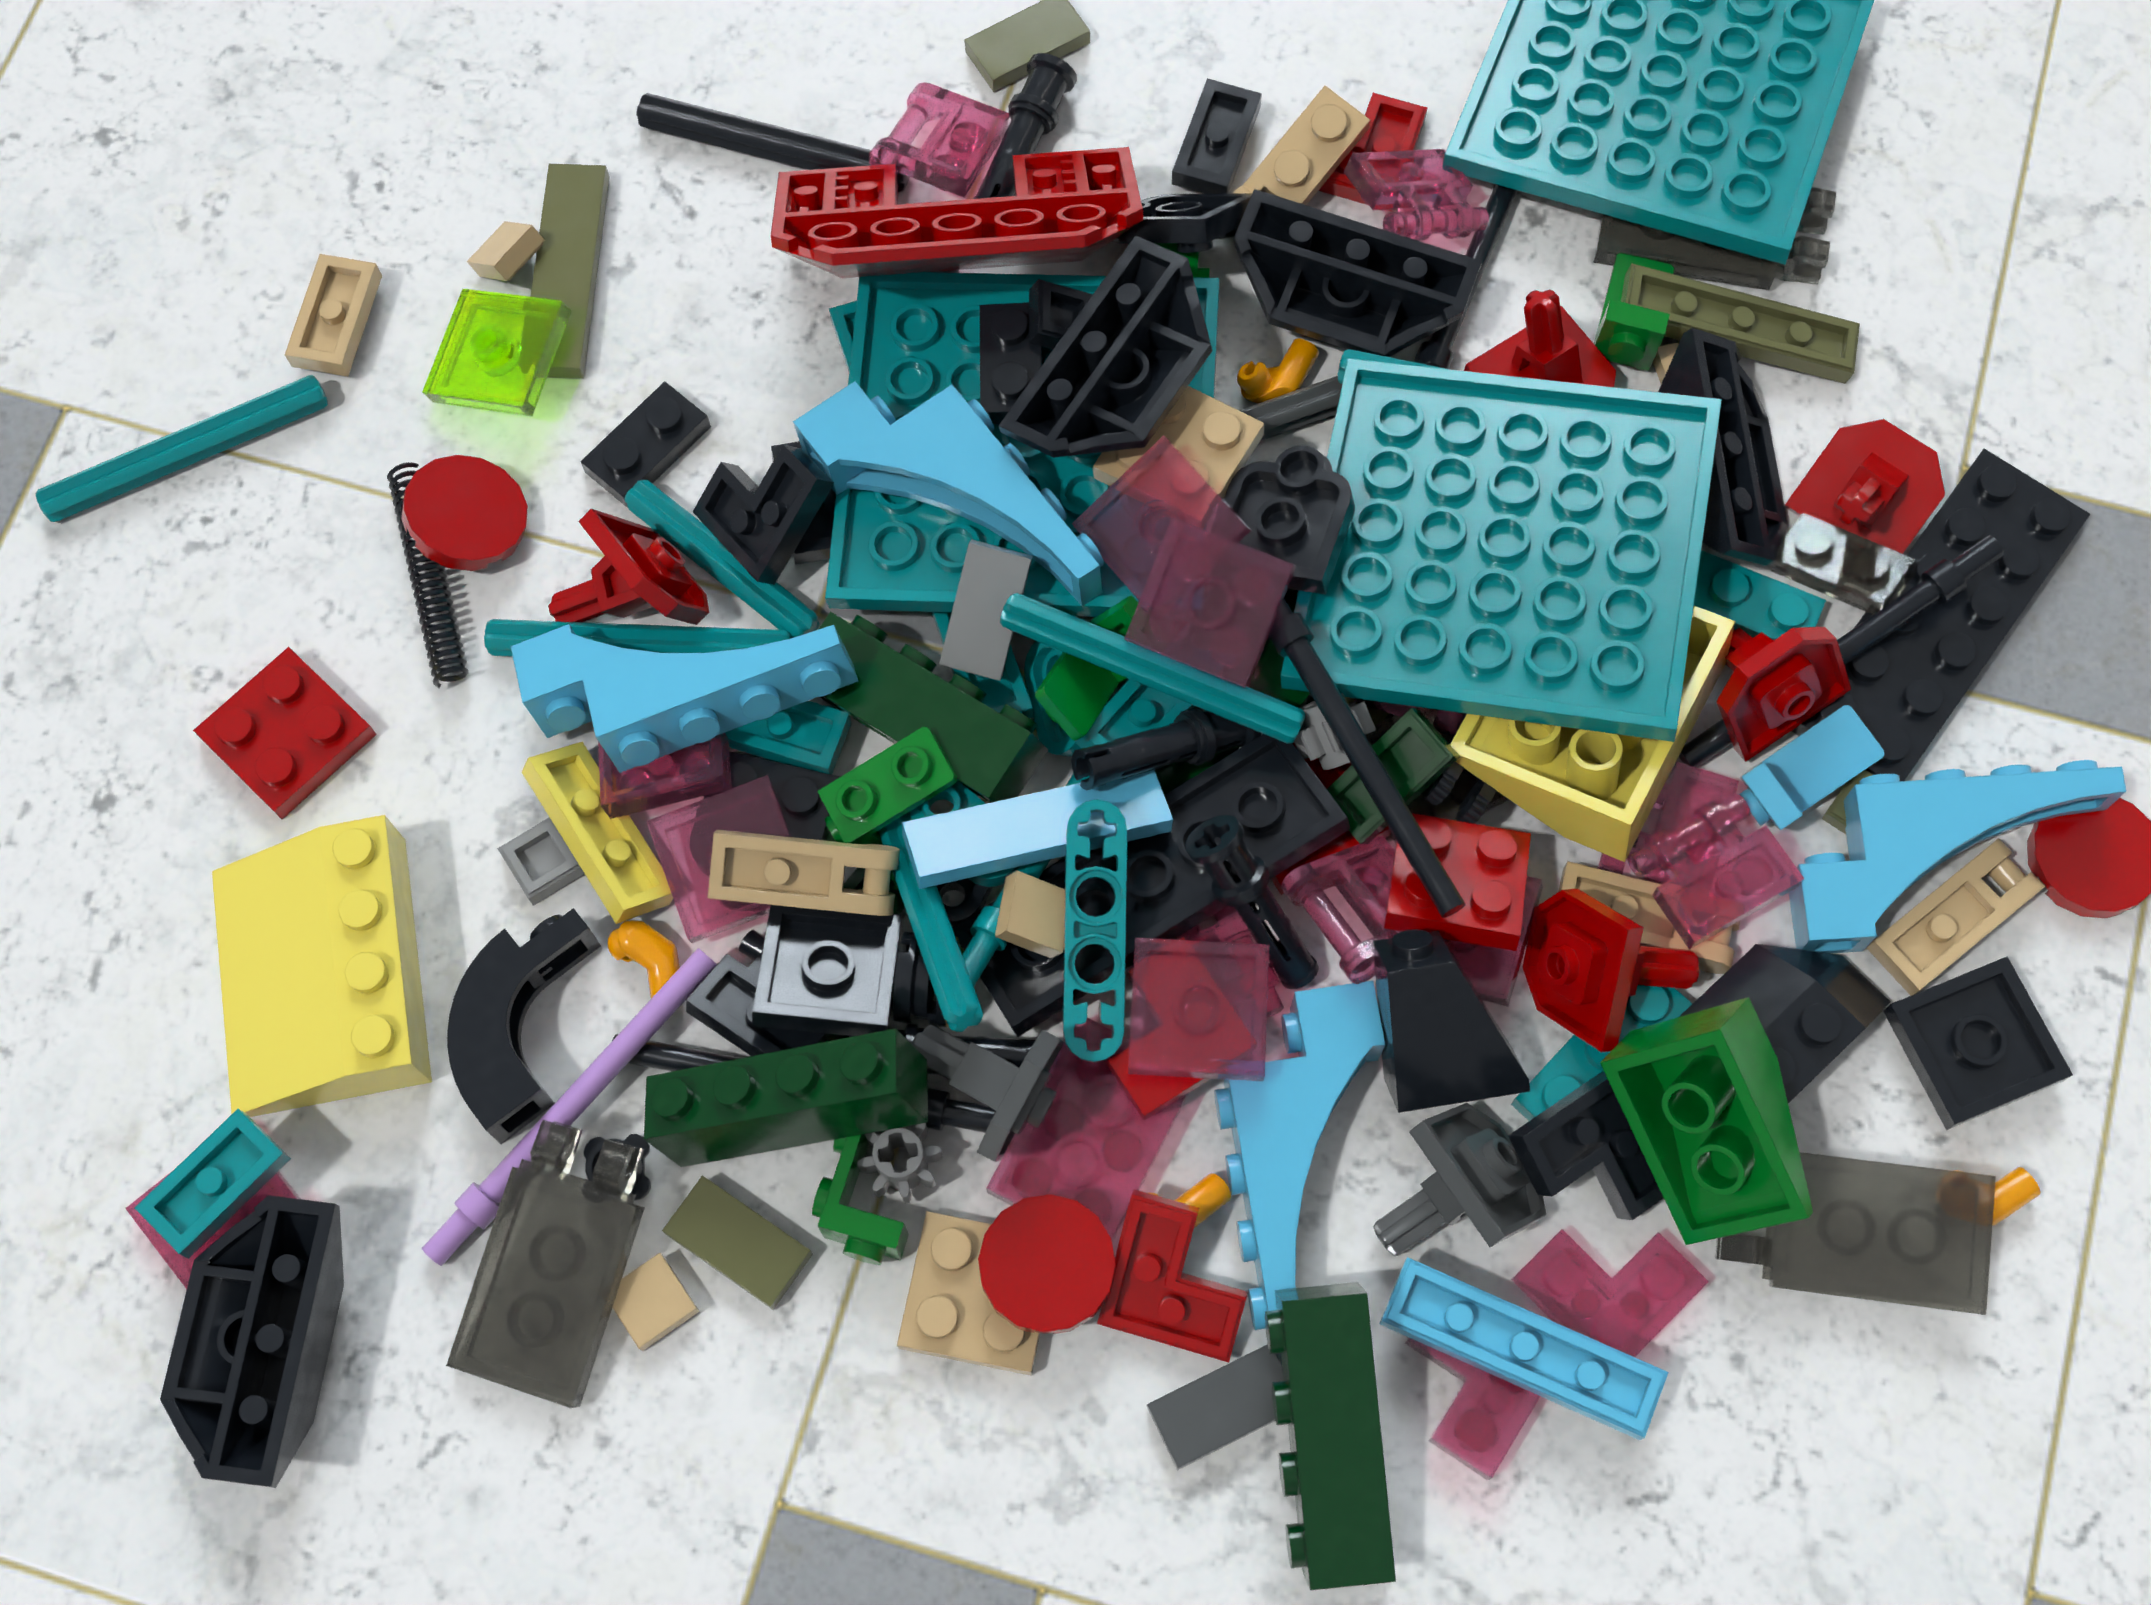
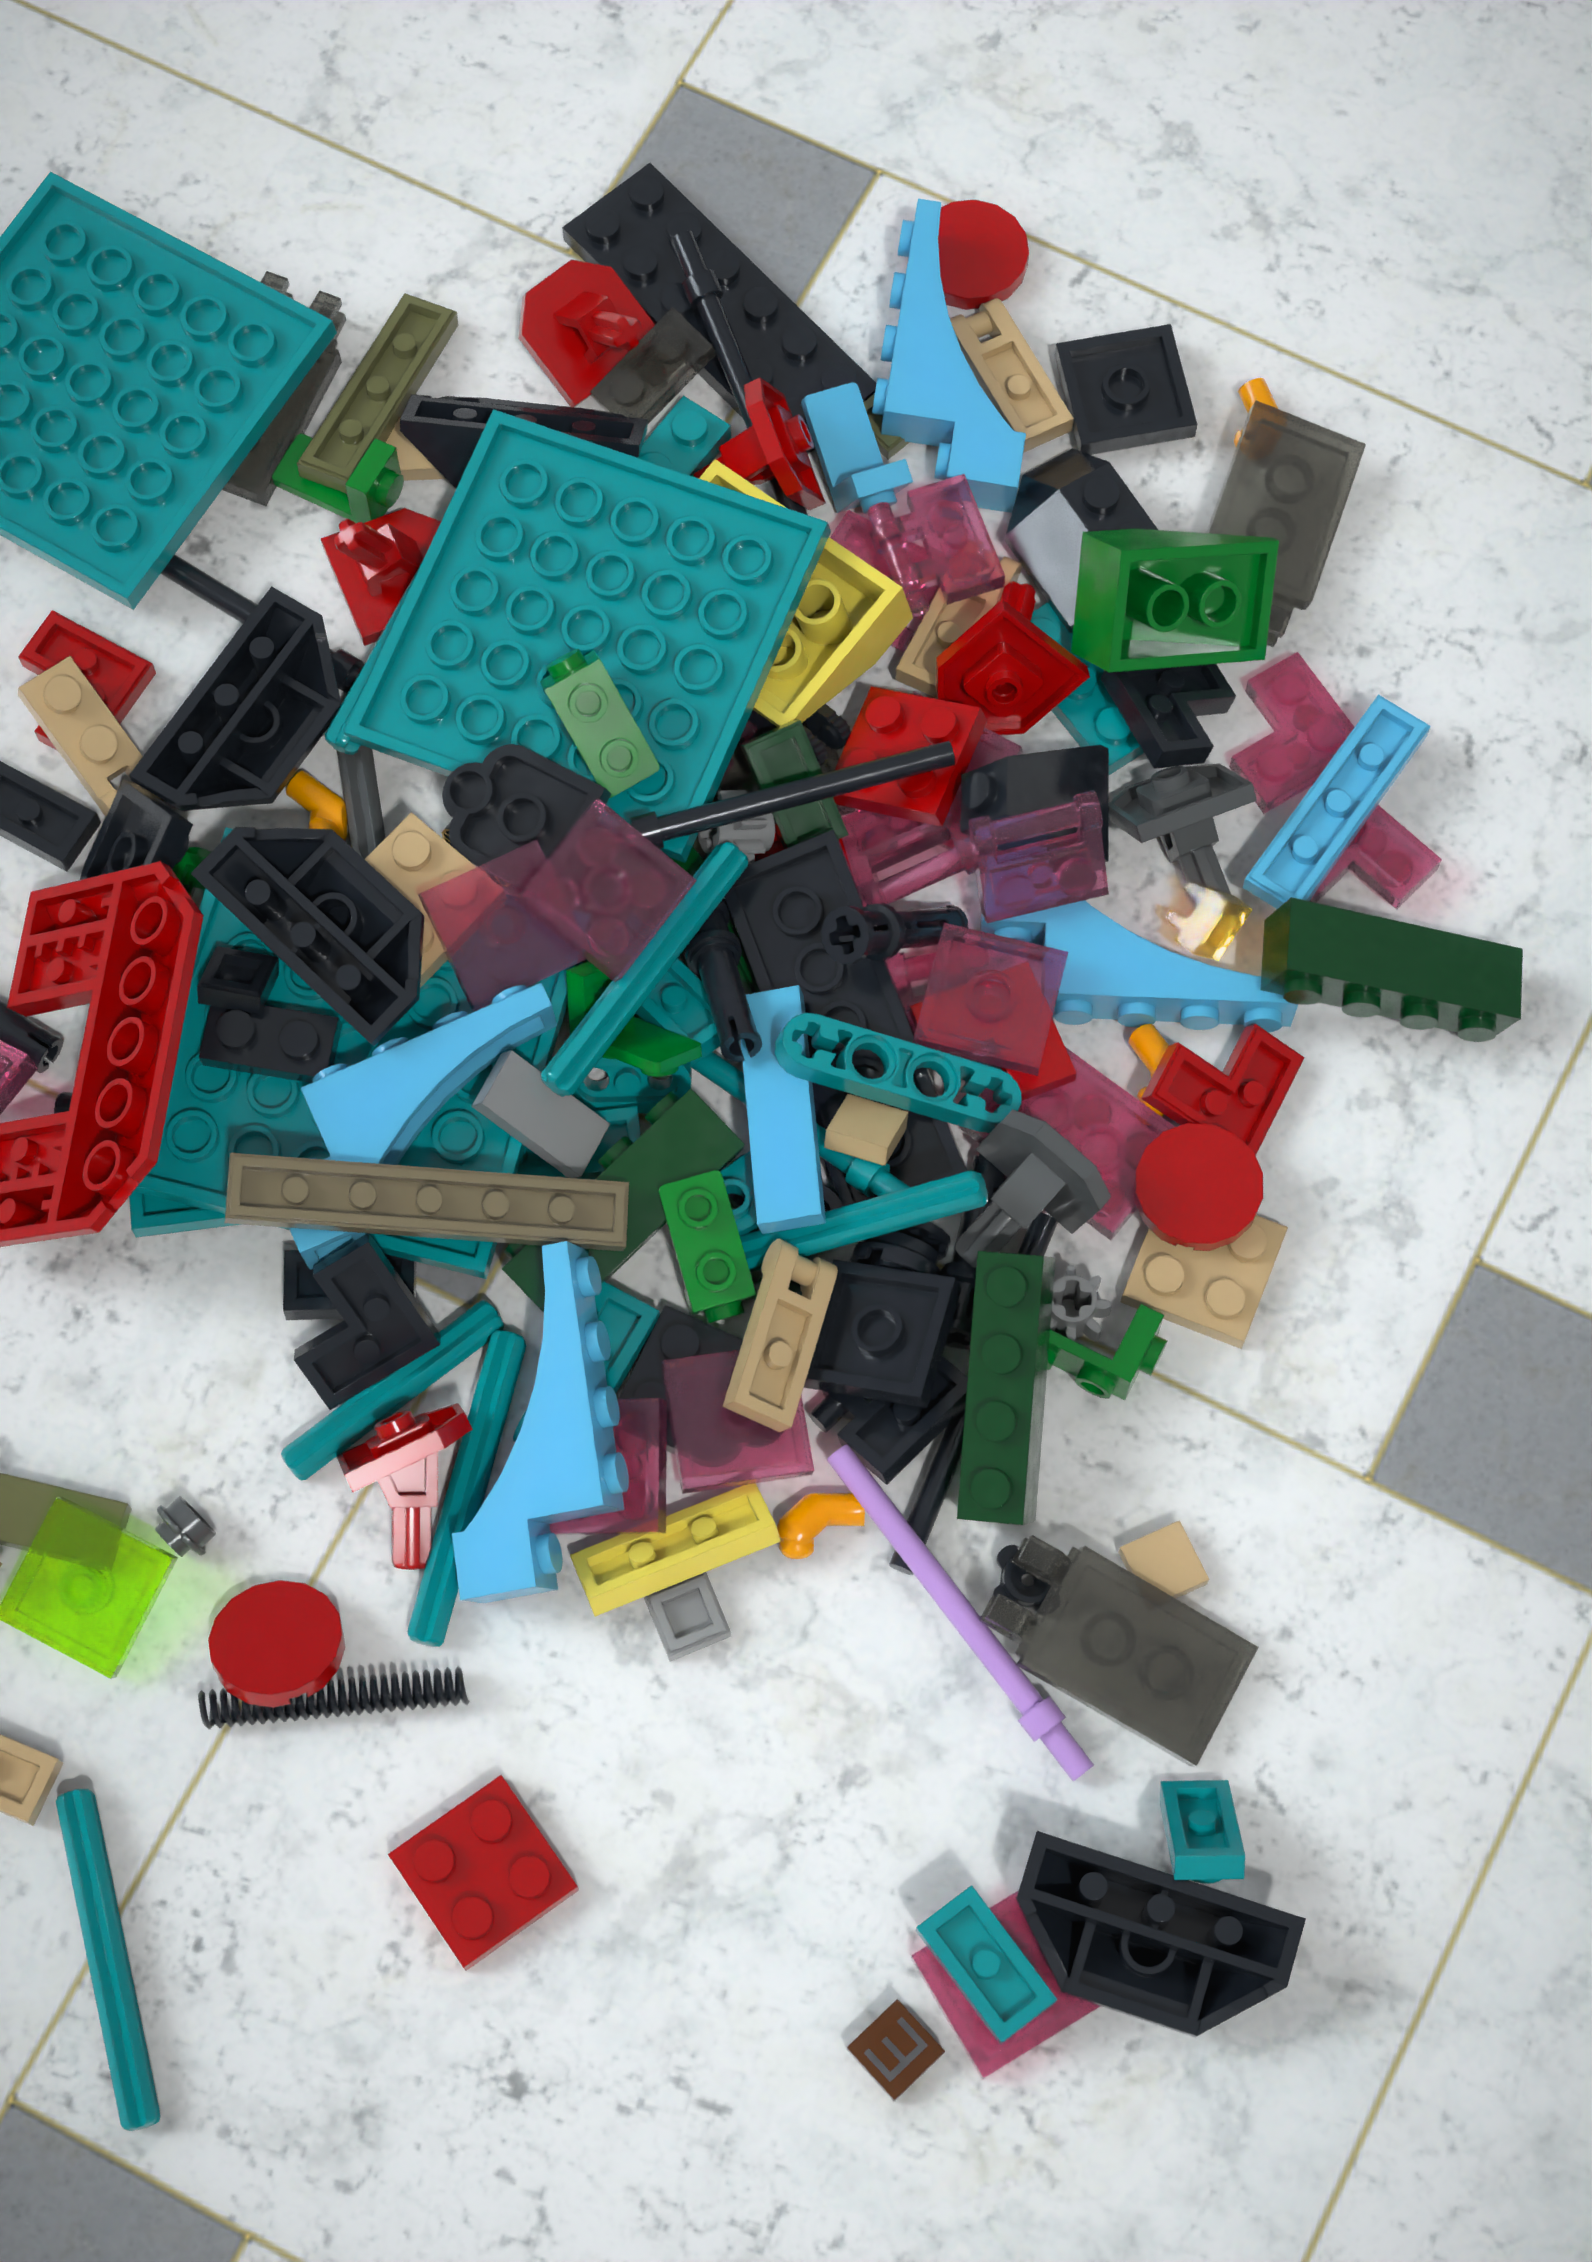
camera: 80 degrees left, 0 degrees up
(150, 1124) = (895, 2050): none -> reddish brown tile
(320, 969) = (764, 1856): light yellow slope -> none
(366, 1373) = (1202, 1830): none -> teal plate
(490, 1016) = (859, 1684): black arch -> none
(565, 418) = (184, 1528): none -> dark grey plate
(646, 442) = (234, 1450): black plate -> none
(737, 1242) = (1119, 1476): olive tile -> none
(860, 519) = (425, 1202): none -> dark tan tile
(1217, 1407) = (1341, 1072): dark grey tile -> none
(1355, 1234) = (1212, 922): none -> clear yellow tile
(1358, 1024) = (1040, 872): none -> clear pink plate
(1395, 557) = (598, 721): none -> green bracket
(1410, 186) = (151, 643): clear pink plate -> none

